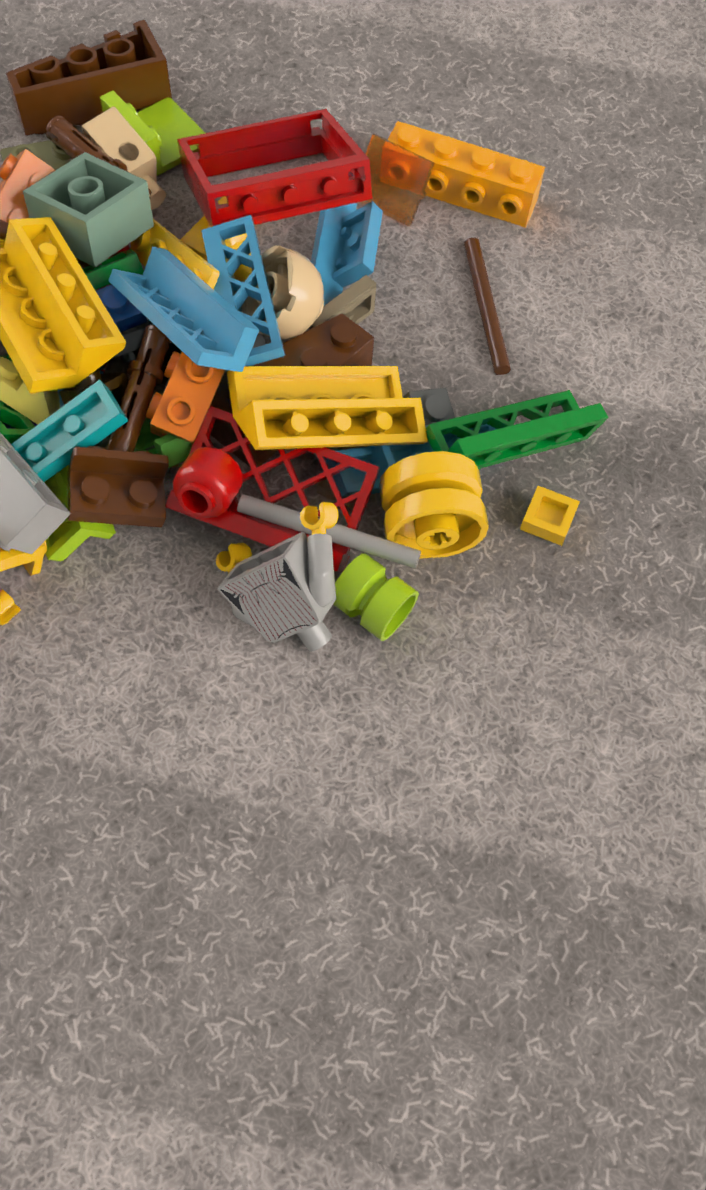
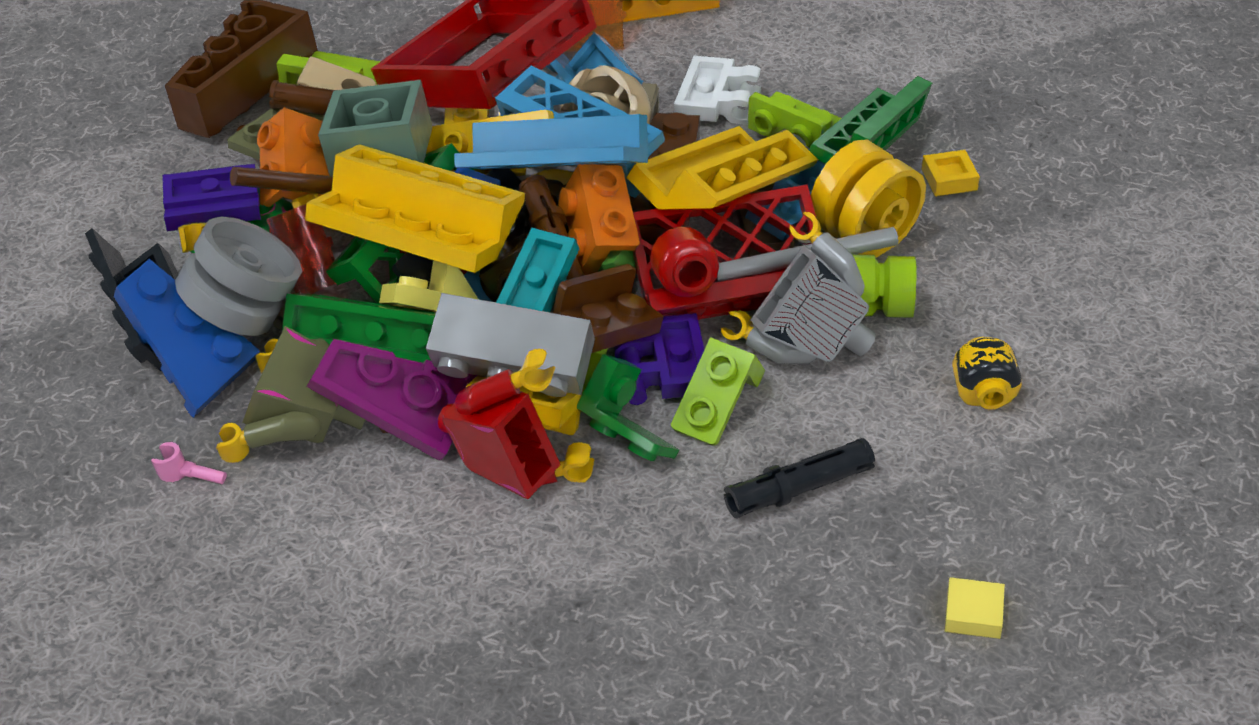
camera: 30 degrees left, 20 degrees down
(59, 588) = (603, 399): none -> green bracket
(126, 735) = (781, 484): none -> black pin
(157, 606) = (715, 391): none -> lime bracket
(158, 562) = (675, 354): none -> dark purple plate
(162, 961) = (974, 608): none -> light yellow tile
(383, 741) = (985, 371): none -> head
(428, 305) = (707, 87): none -> white plate
(469, 378) = (782, 112): none -> lime bracket
(487, 307) = (766, 79): reddish brown bar -> none

